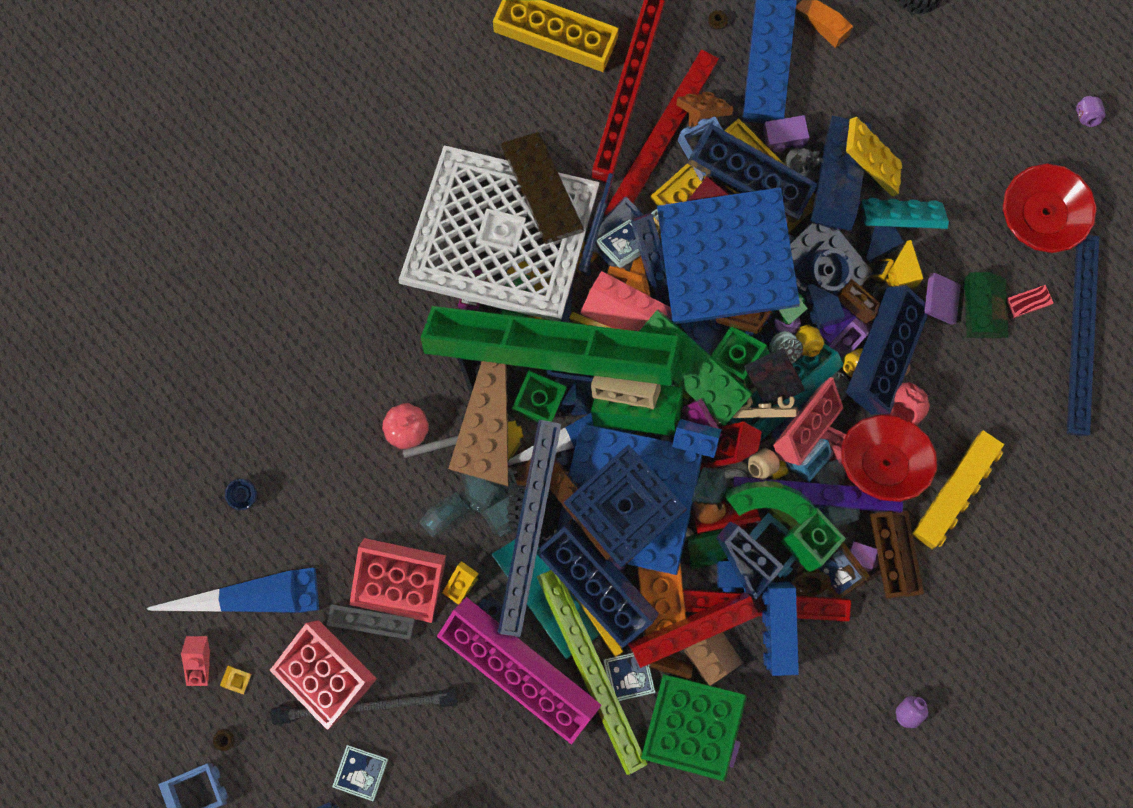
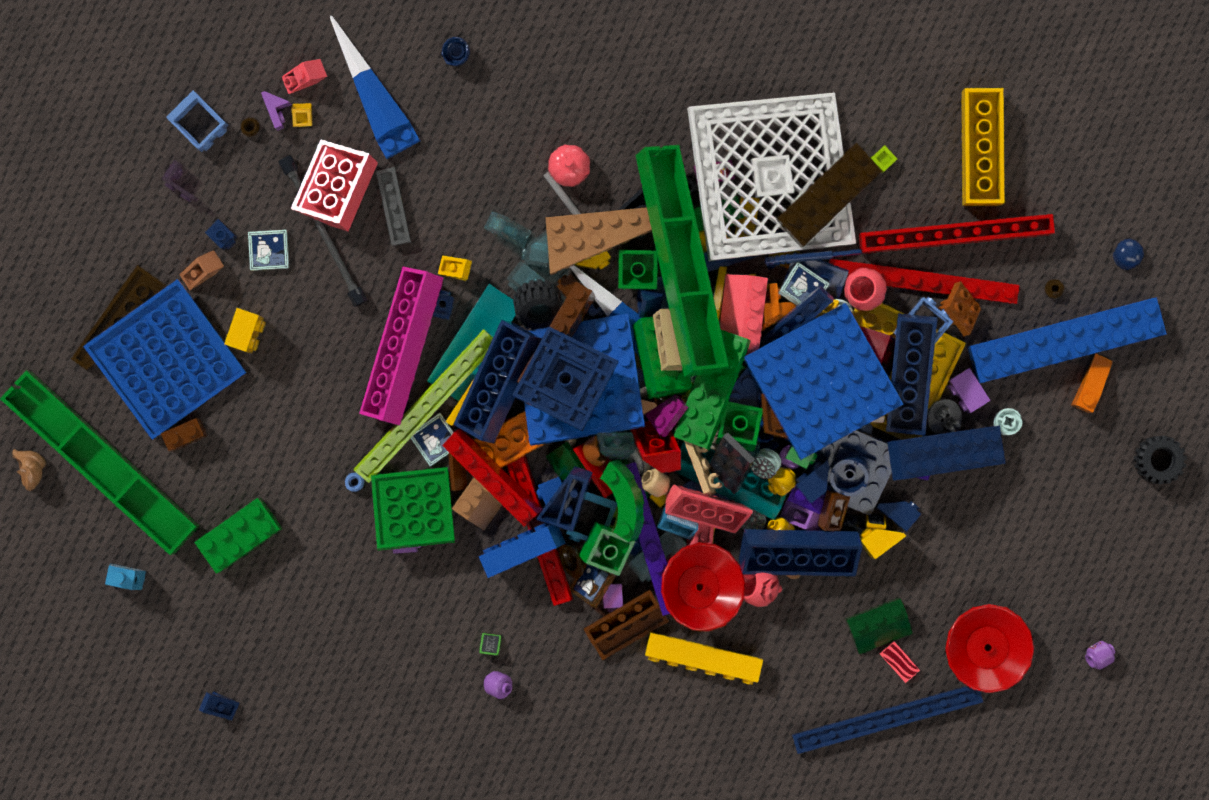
camera: 70 degrees right, 10 degrees up
(211, 704) = (274, 104): none -> medium lavender slope
(397, 580) = (437, 213): coral slope -> none
(527, 124) = (884, 158): none -> lime plate
(529, 528) = (519, 306): plate -> none
(640, 787) = (349, 486): none -> medium blue plate
(649, 187) = (865, 289): none -> coral piece
(696, 438) = (651, 416): blue brick -> none
(828, 106) = (1009, 421): none -> light aqua wheel
(865, 704) = (490, 644): none -> slope
(874, 156) = (971, 476): yellow plate -> none
(904, 213) = (933, 522): teal plate -> none
(942, 298) = (869, 584): medium lavender tile -> none

